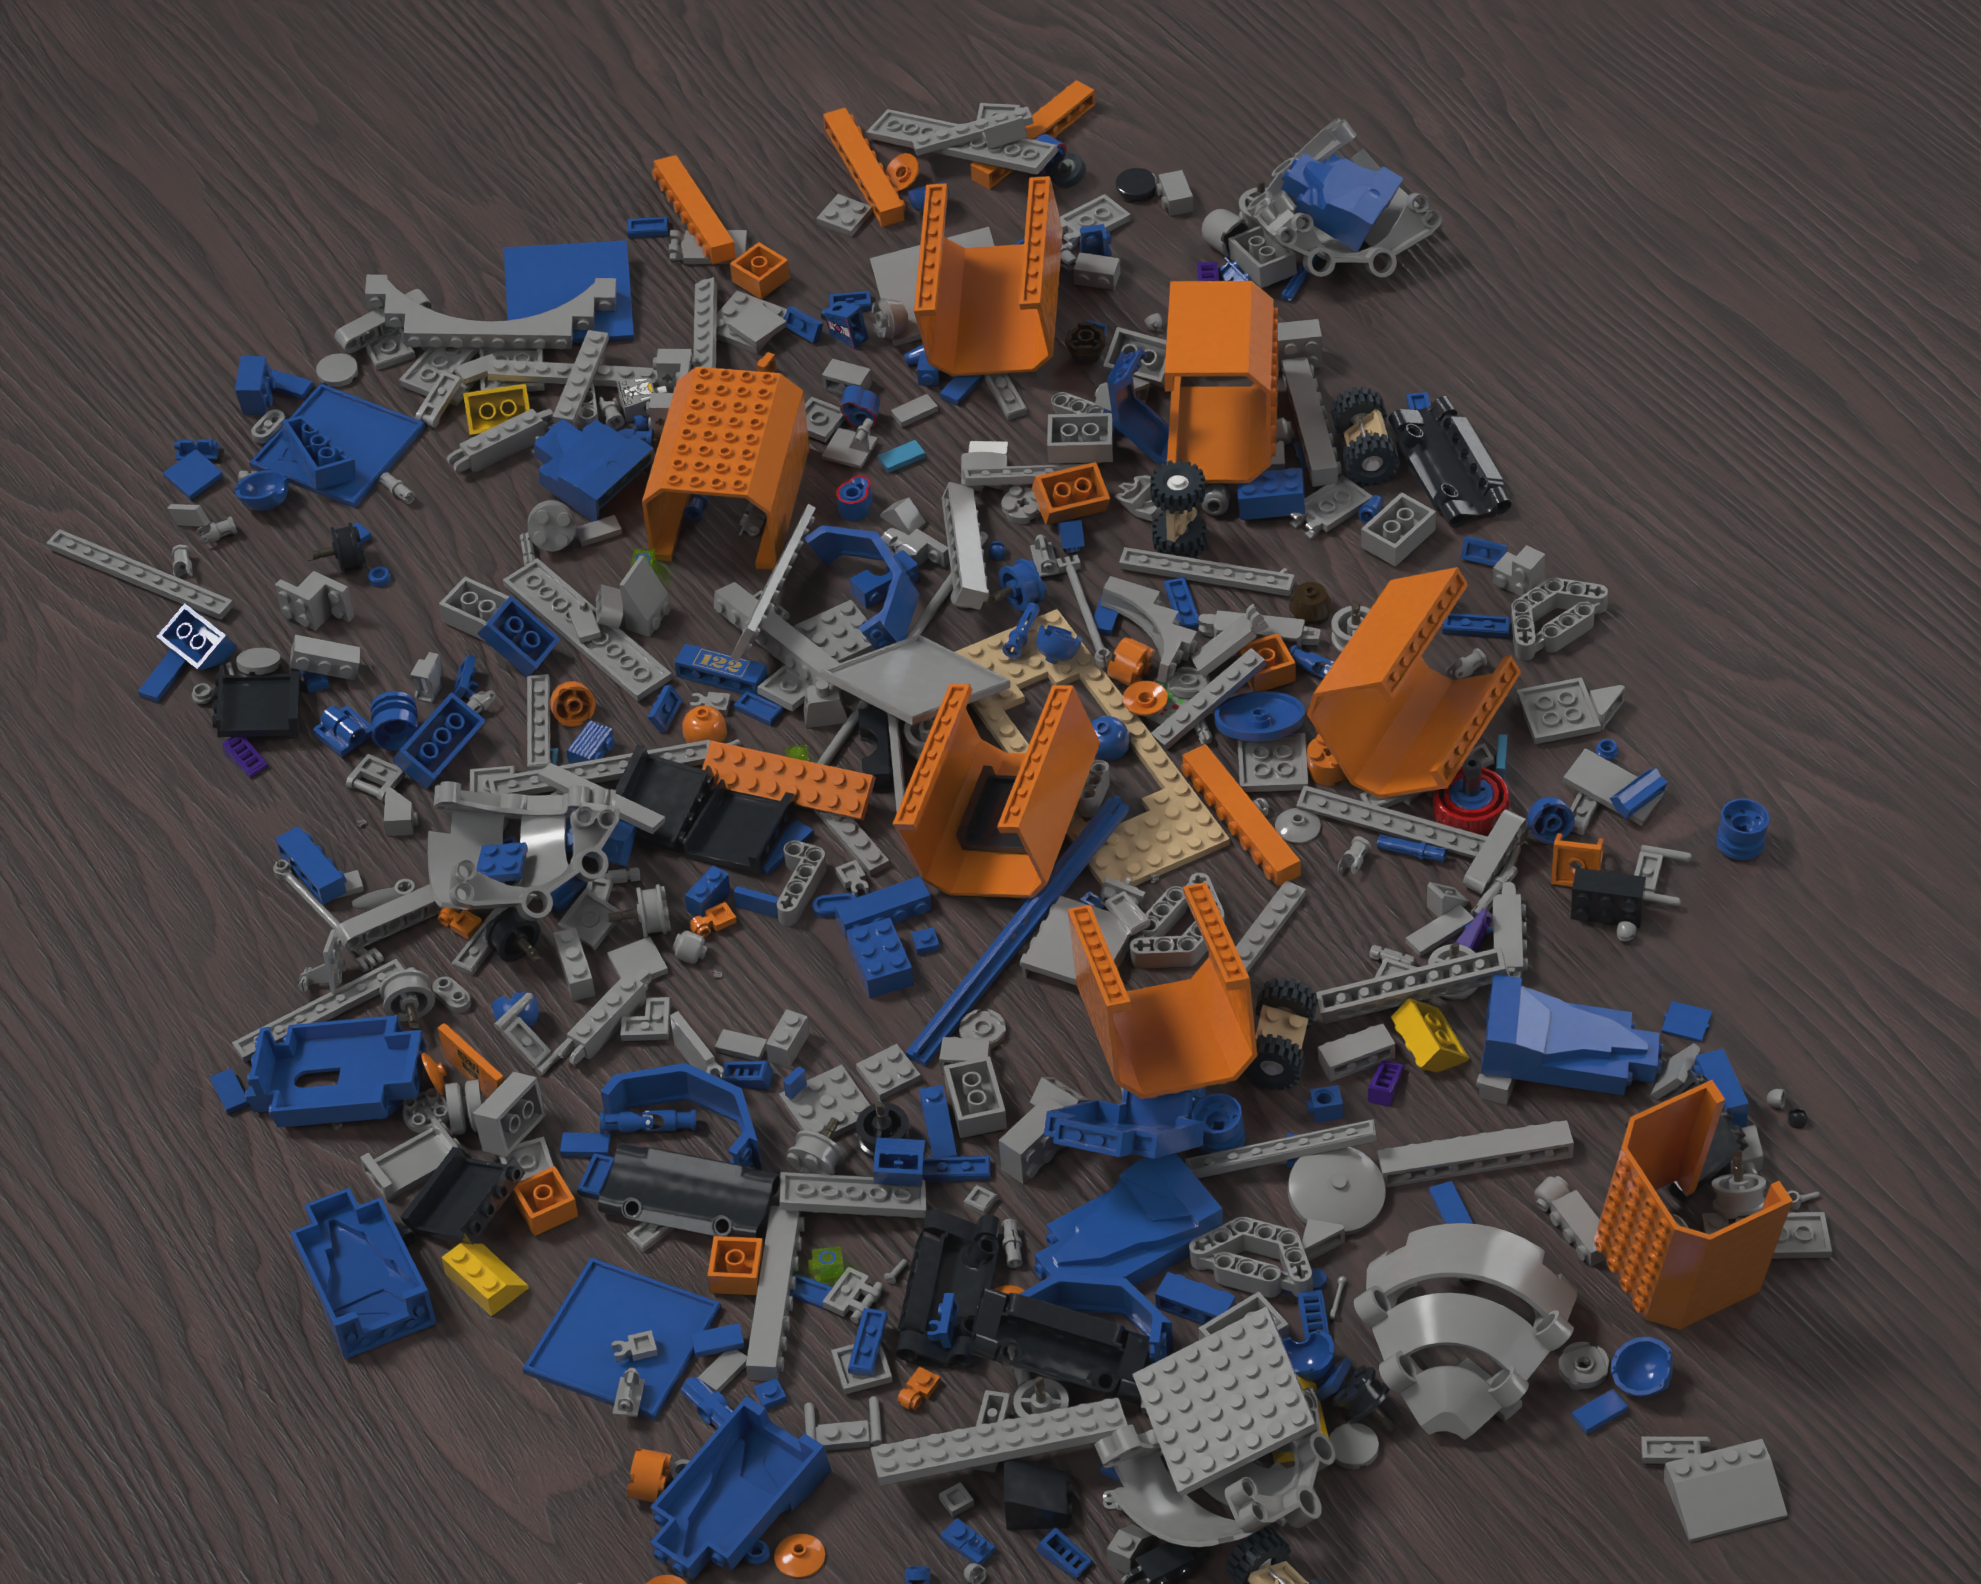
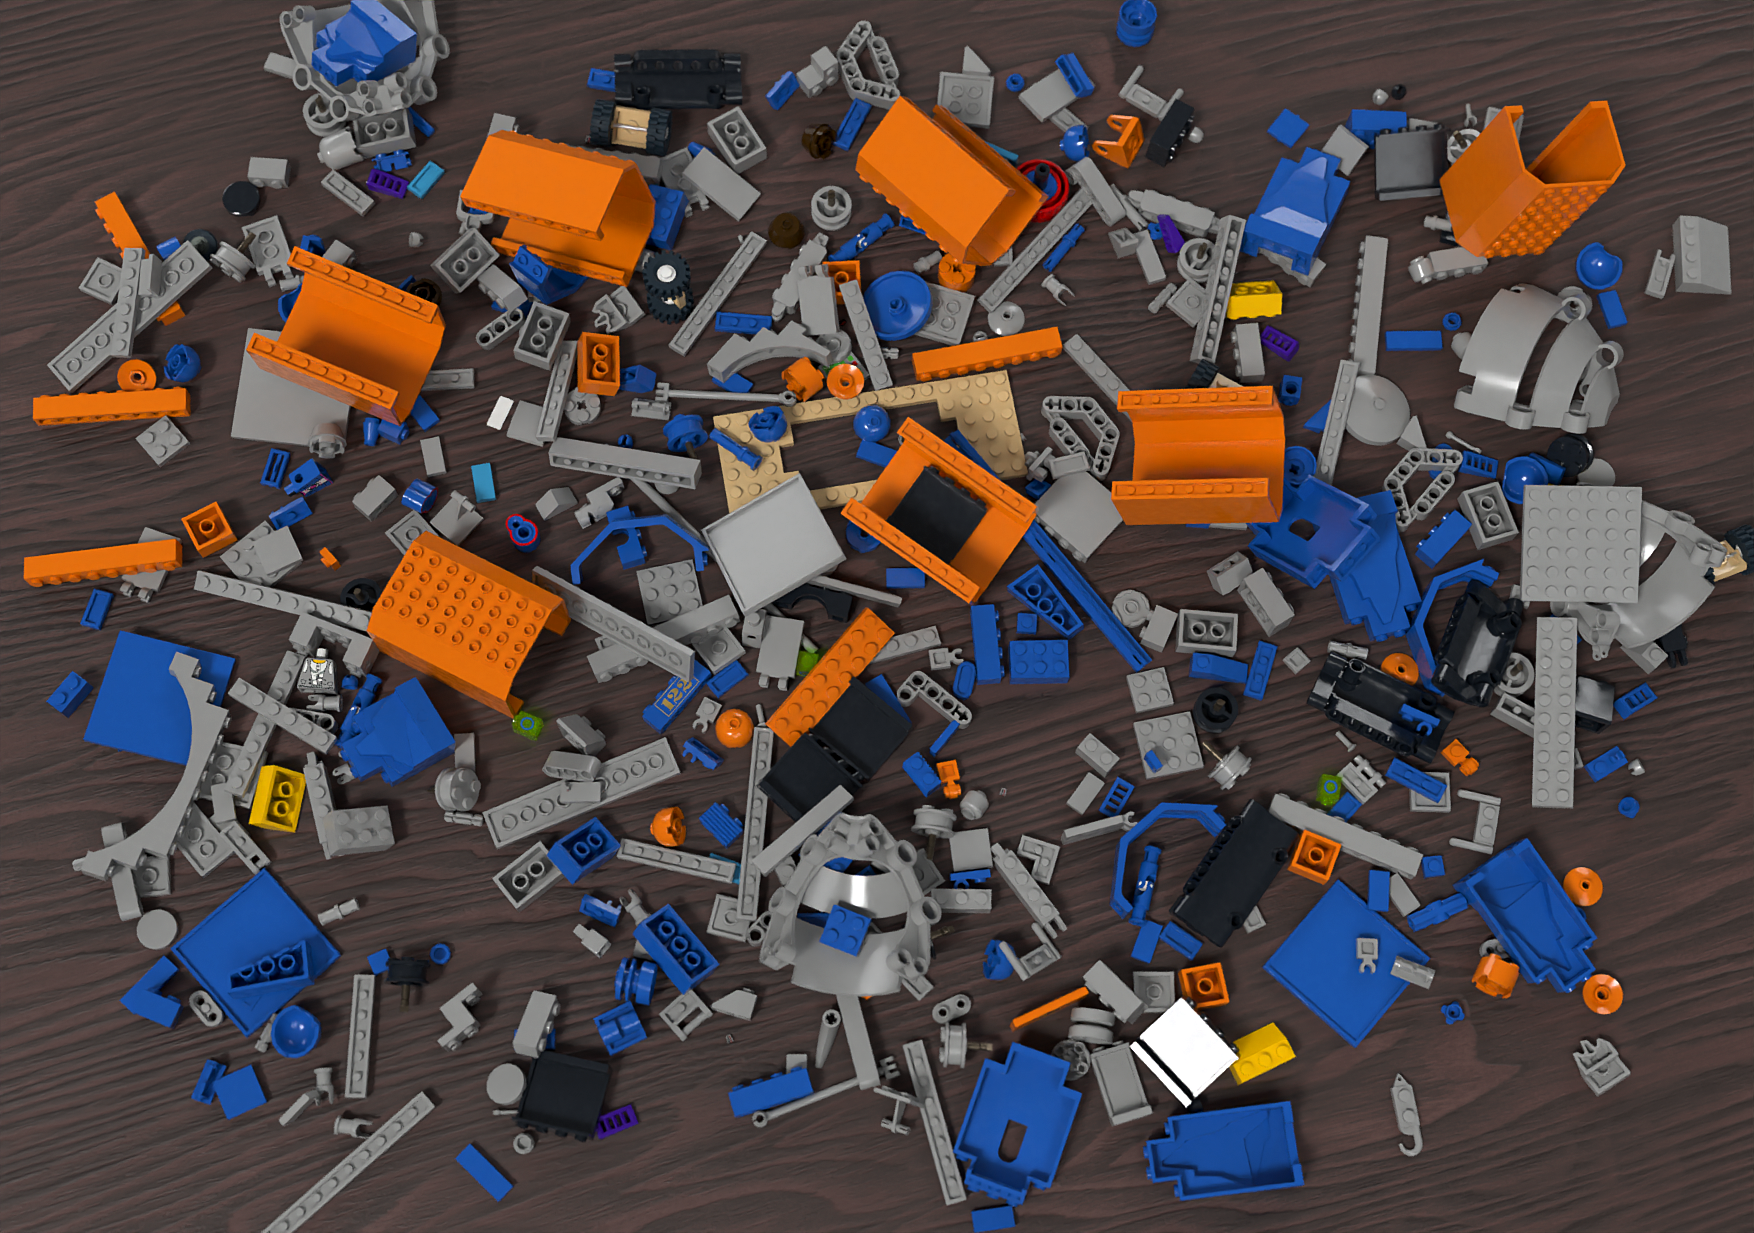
camera: 80 degrees left, 25 degrees up
(196, 639) = (461, 1134): blue slope -> none
(273, 542) = (360, 1036): none -> light grey plate
(436, 1073) = (1045, 1041): orange dish -> none
(459, 1438) = (1406, 1114): none -> light grey plate
(481, 466) = (358, 830): none -> light grey brick
(549, 231) = (70, 694): none -> blue brick
(591, 1449) = (1458, 1015): none -> blue plate
(601, 960) = (977, 875): none -> blue plate
(818, 732) = (779, 650): none -> light grey tile
(850, 1195) = (1275, 751): light grey plate -> none
(899, 1161) = (1261, 705): blue slope -> none
(954, 944) = (1043, 599): none -> blue wedge
(1065, 191) = (233, 260): none -> light grey wheel
(1182, 256) = (348, 193): none -> light grey plate
(1337, 532) = (721, 184): none -> light grey tile

